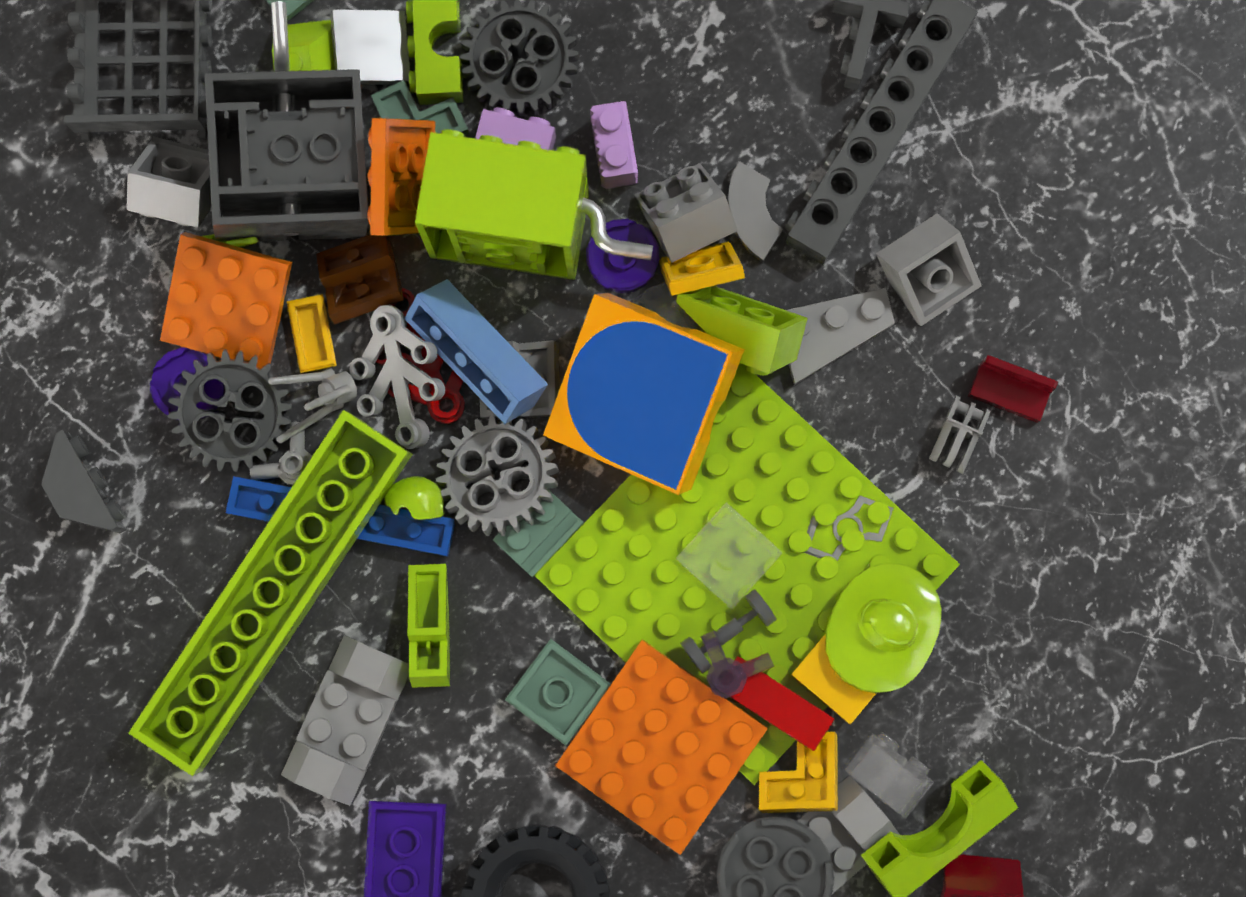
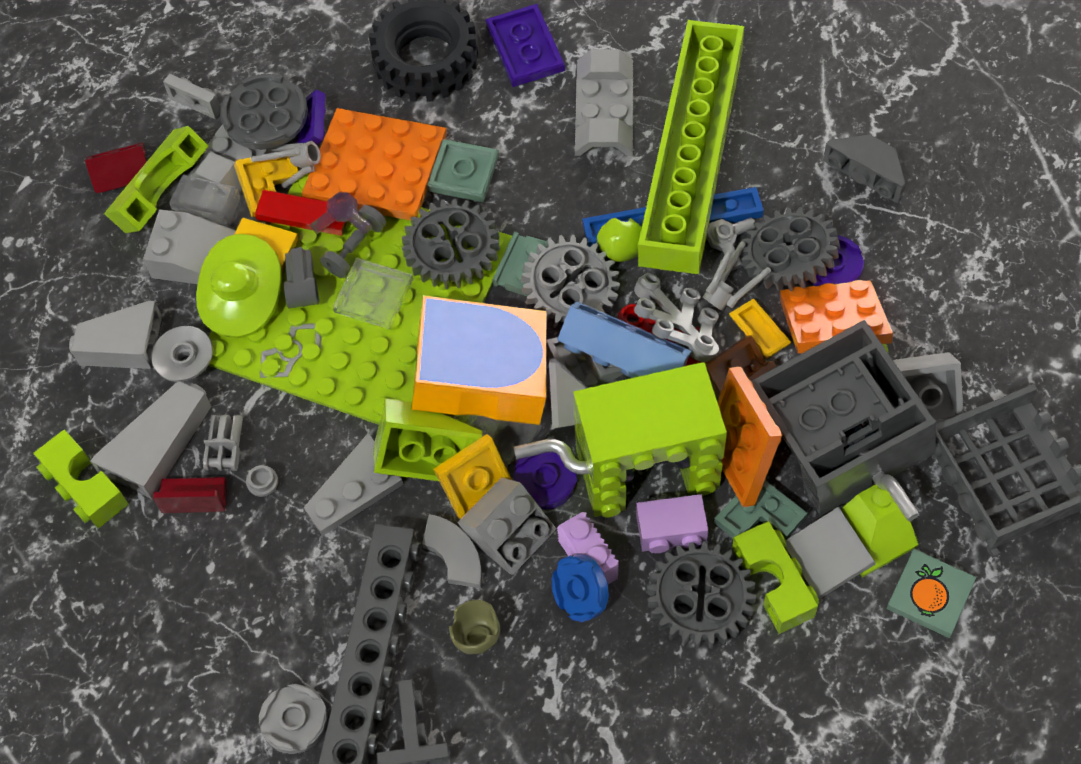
camera: 160 degrees right, 20 degrees down
(428, 626) = (574, 174): lime slope -> none
(561, 317) = (561, 387): none -> light grey slope
(580, 582) = (476, 232): none -> dark grey gear
(639, 105) = (580, 587): none -> blue tile
(719, 829) = (314, 126): none -> dark purple plate
(751, 776) = (301, 155): none -> light grey plant
(763, 110) = (474, 627): none -> olive hair
(810, 595) = (301, 285): none -> dark grey piece
(927, 717) = (181, 245): none -> light grey slope
(929, 268) = (290, 558): light grey slope -> none
(930, 375) = (262, 481): none -> light grey plate
(976, 102) = (293, 719): none -> light grey tile
(993, 566) = (177, 344): none -> light grey dish
(1041, 465) = (154, 440): none -> light grey slope
(1043, 621) = (118, 338): none -> light grey slope
(1125, 424) = (96, 497): none -> lime arch

